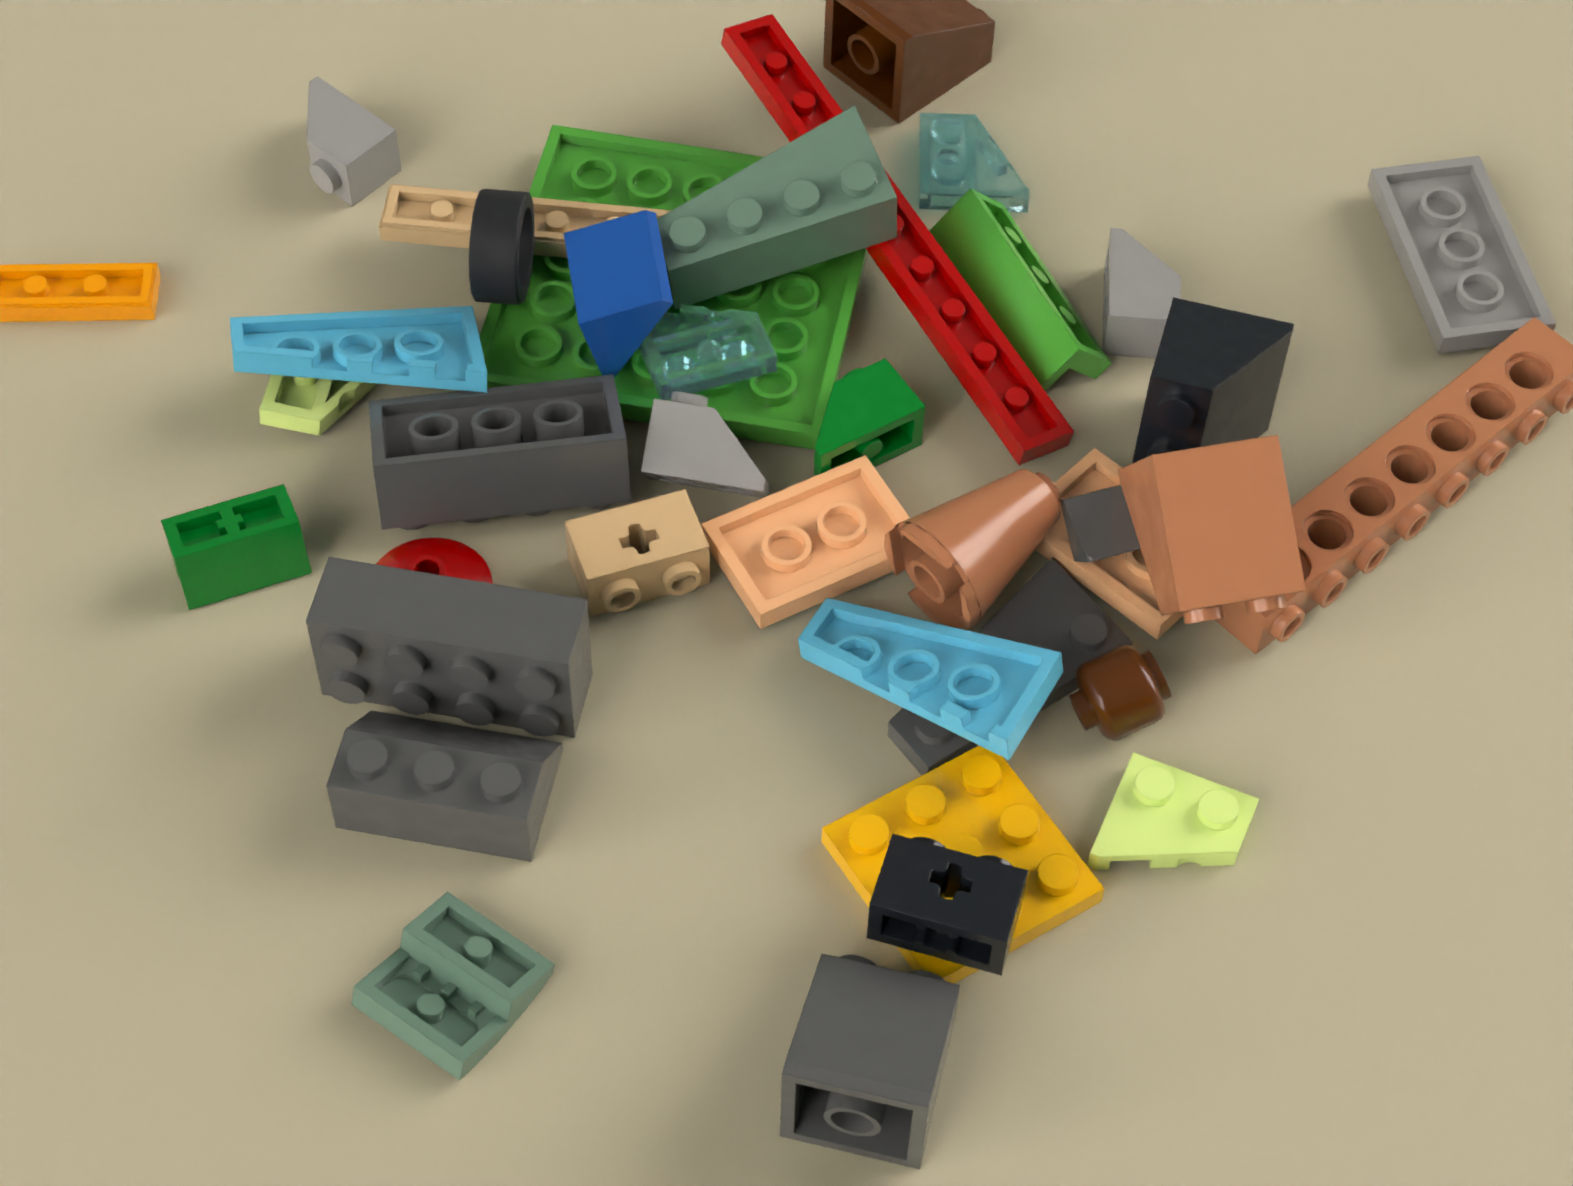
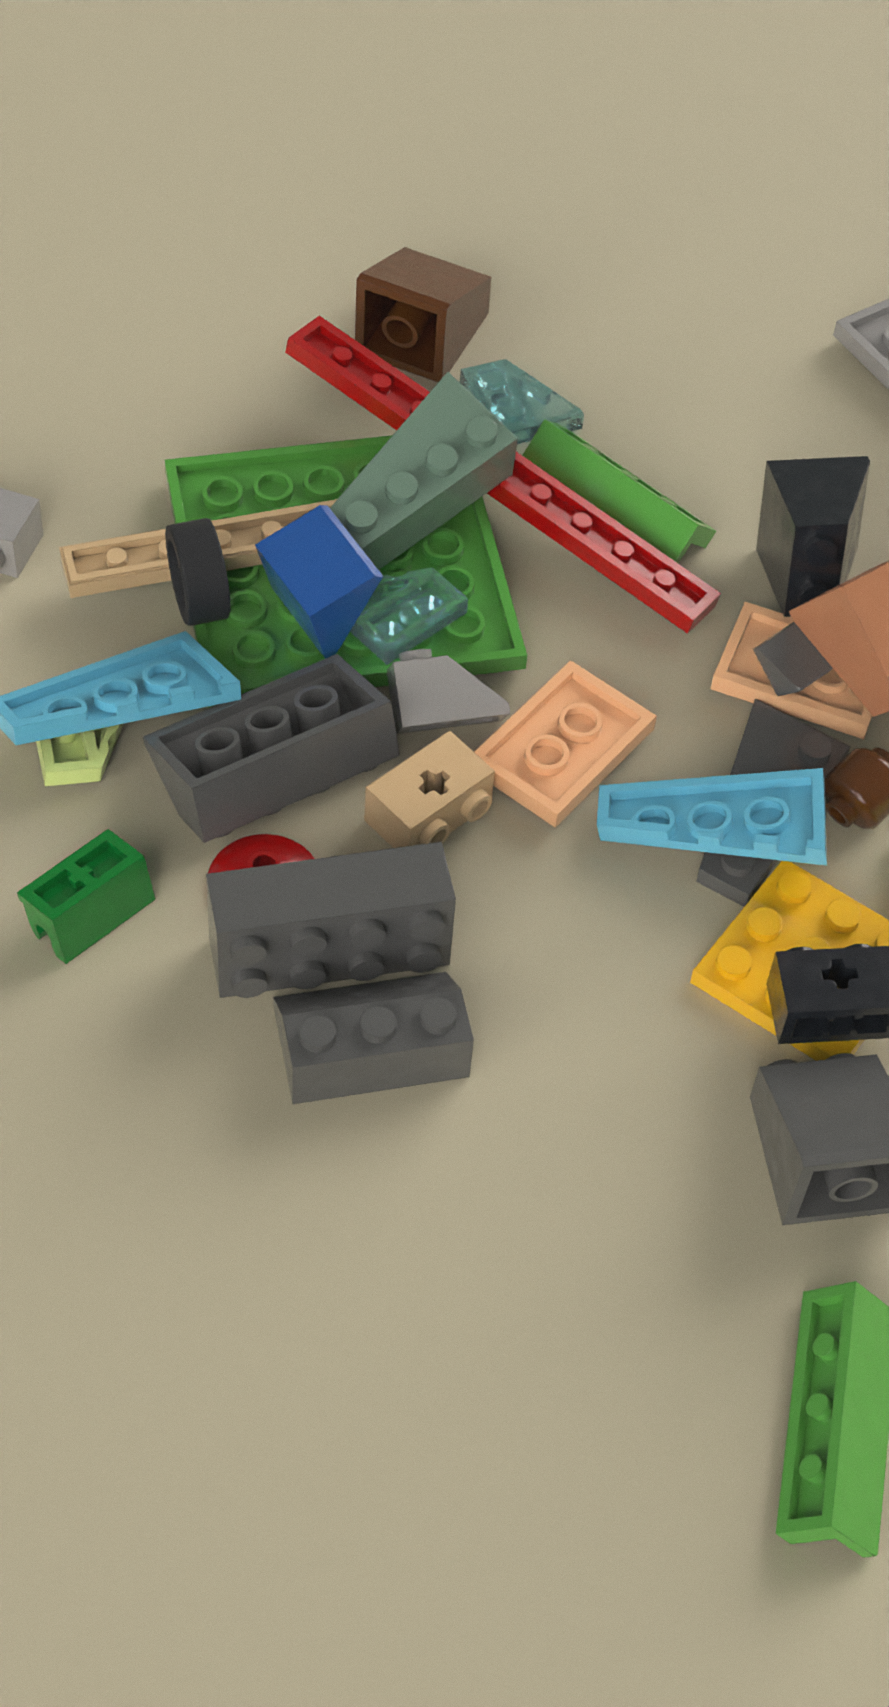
camera: 25 degrees left, 0 degrees up
(453, 985) = (465, 1198): sand green slope -> none
(871, 416) = (556, 628): green slope -> none
(973, 545) = (700, 709): nougat cone -> none
(1135, 297) = (714, 473): light grey slope -> none

